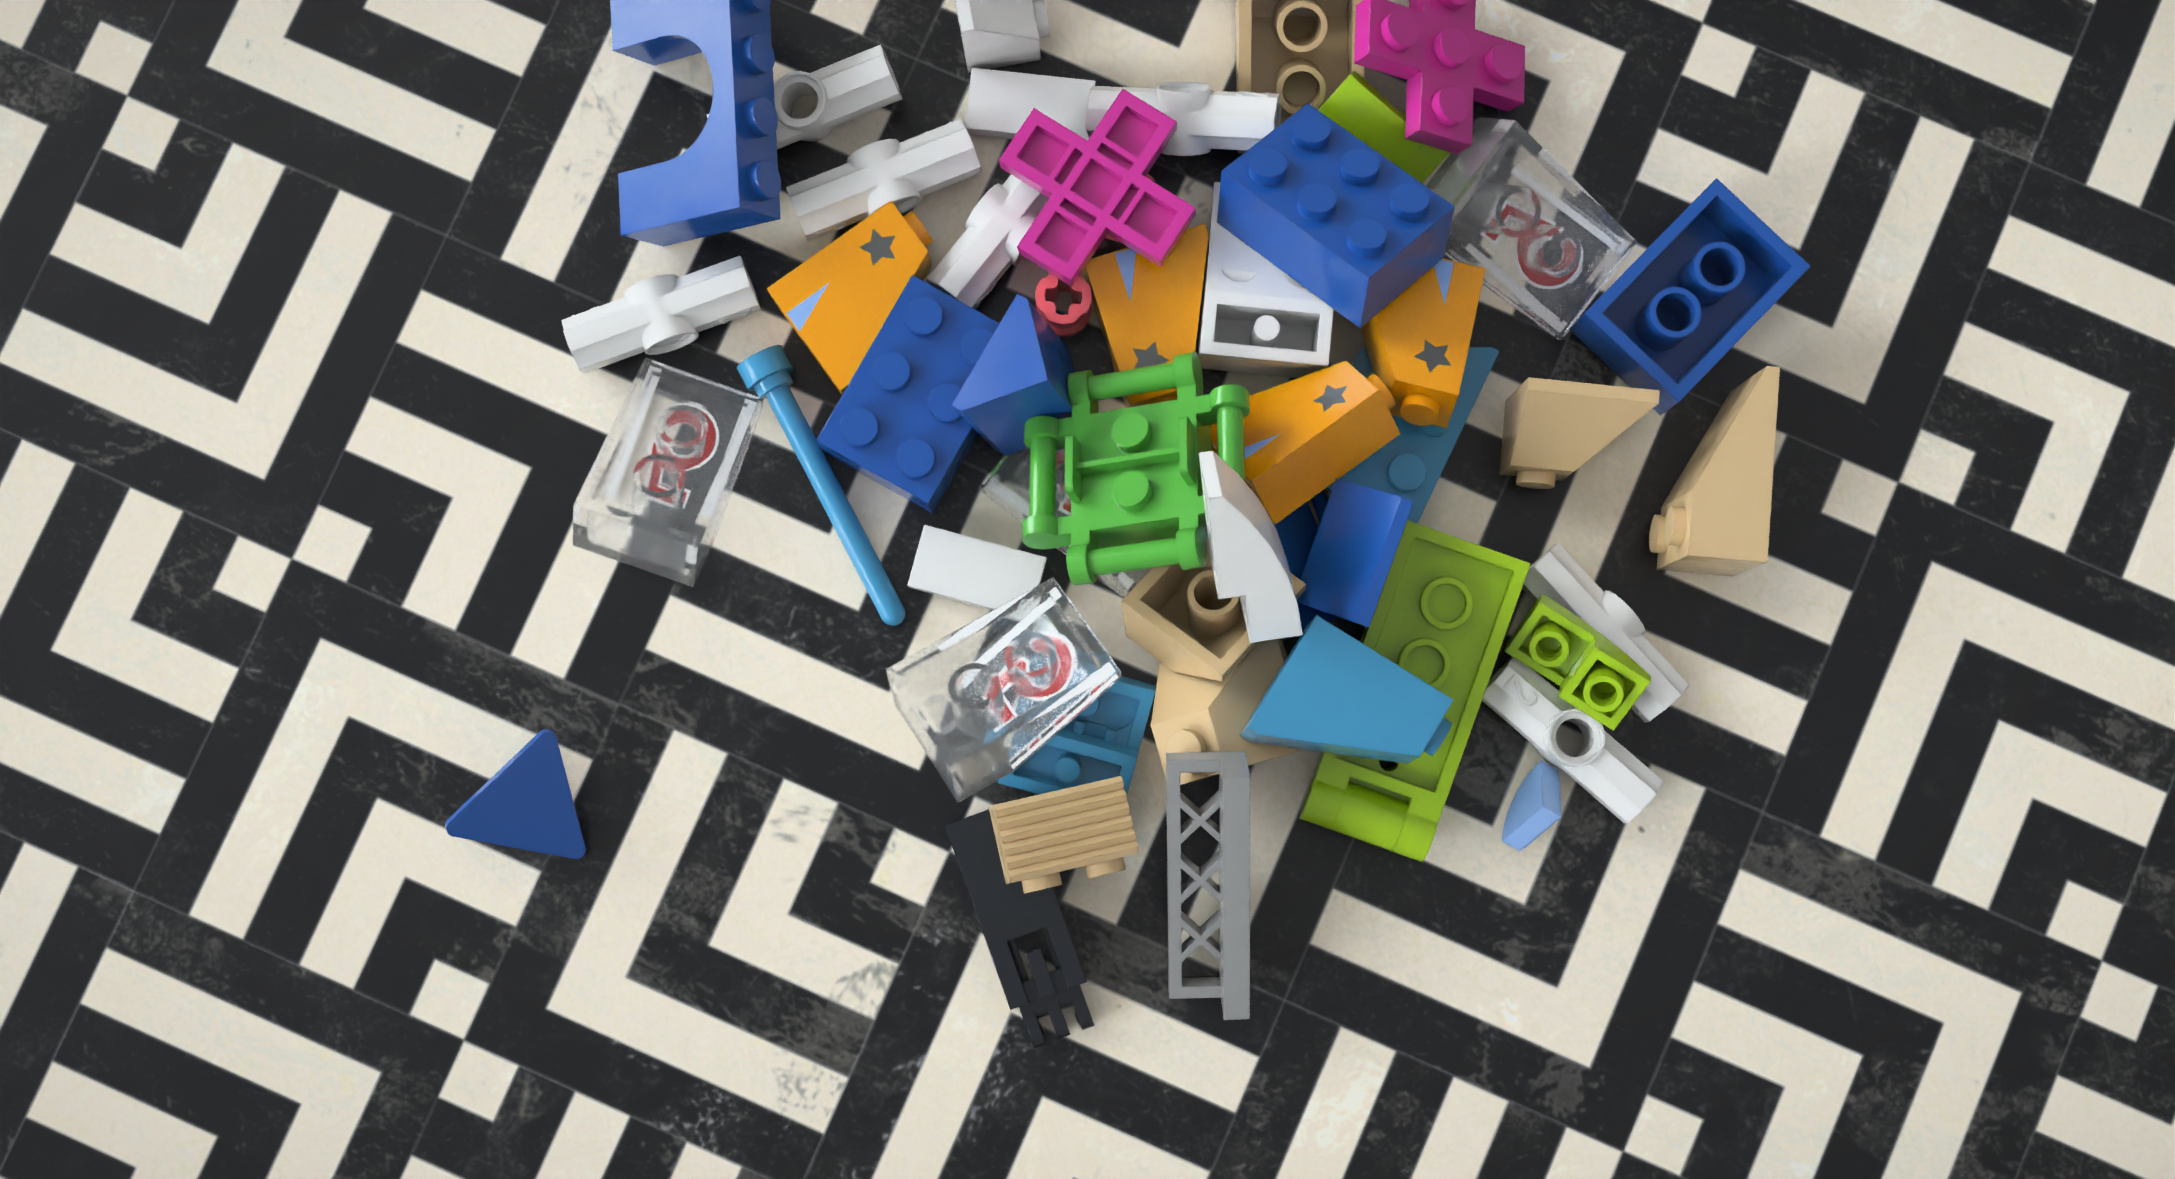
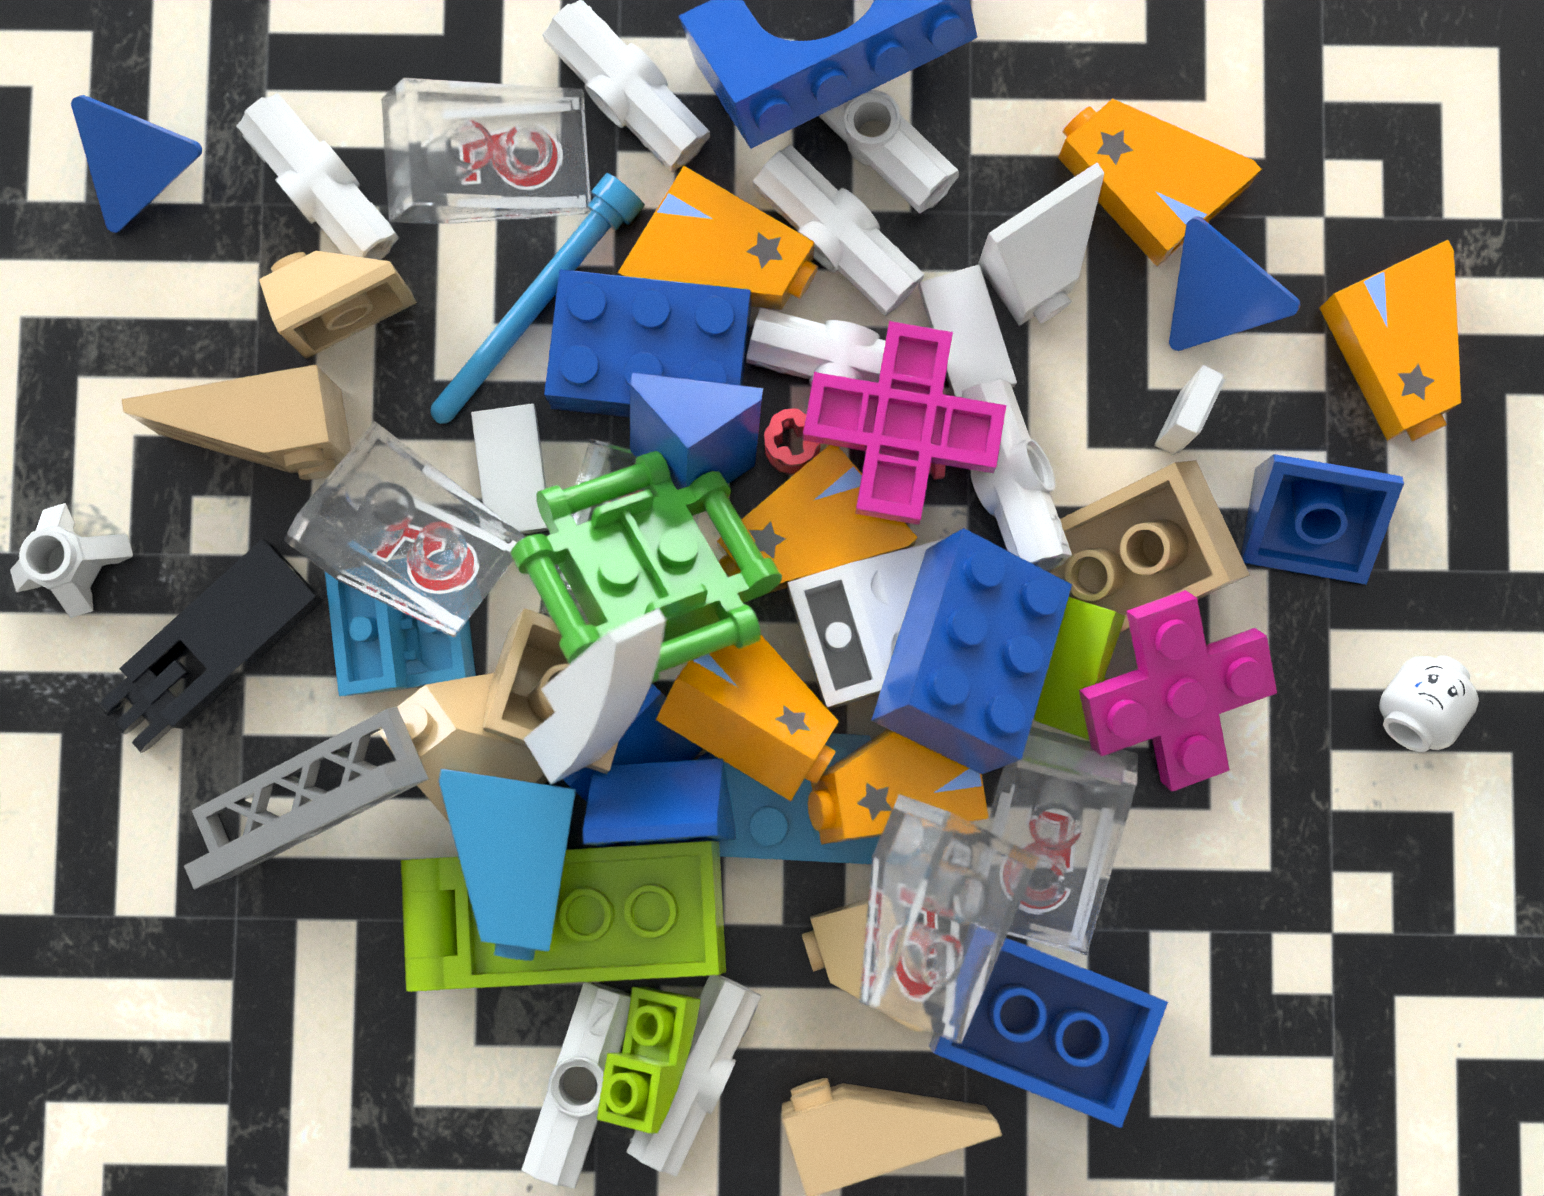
camera: 70 degrees right, 0 degrees up
(624, 638) = (316, 179): none -> white piece
(741, 667) = (331, 297): none -> tan slope
(838, 775) = (272, 419): none -> tan slope
(884, 1021) = (66, 561): none -> white rock
(1063, 832) = (291, 646): tan brick -> none
(1533, 807) = (504, 1075): light blue tile -> none
(1561, 337) = (938, 915): none -> clear slope

